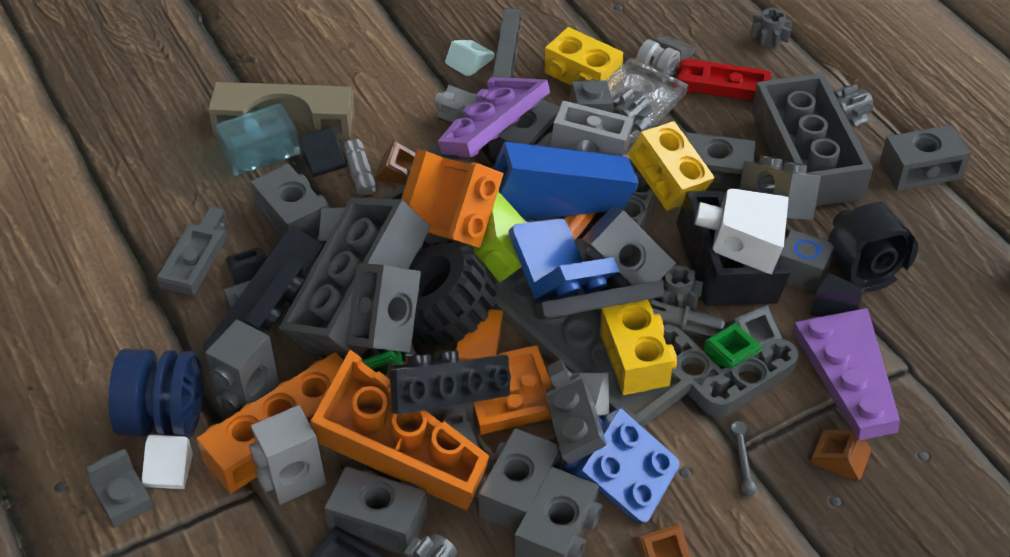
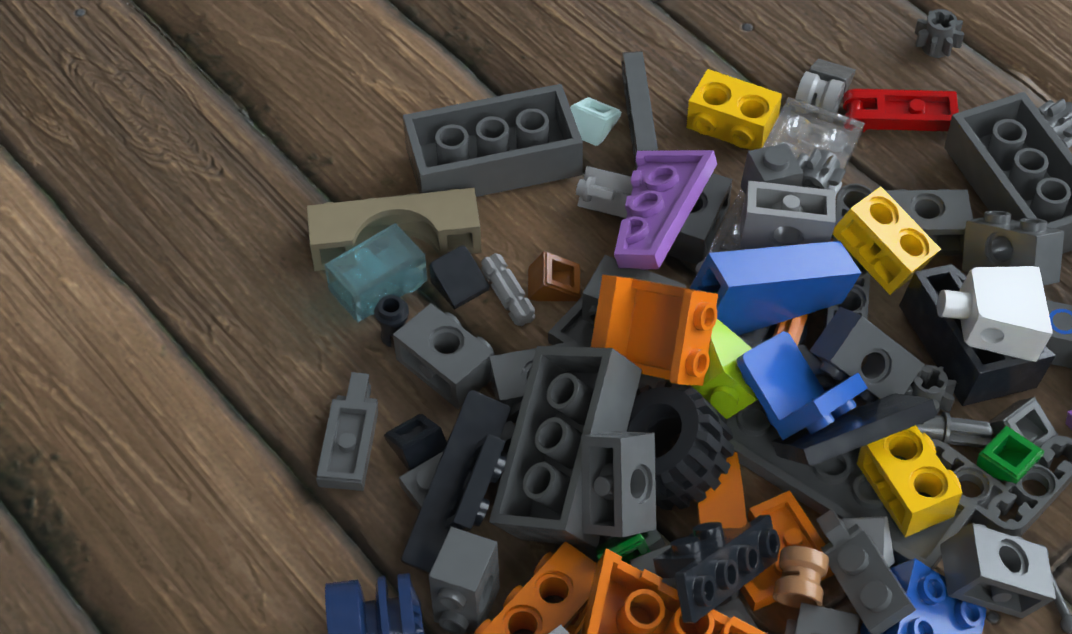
camera: 10 degrees left, 5 degrees up
(254, 166) = (391, 314): none -> black pin
(380, 58) = (495, 143): none -> dark grey brick
(520, 407) = (800, 576): none -> medium nougat wheel
(691, 431) = (997, 571): none -> dark grey brick

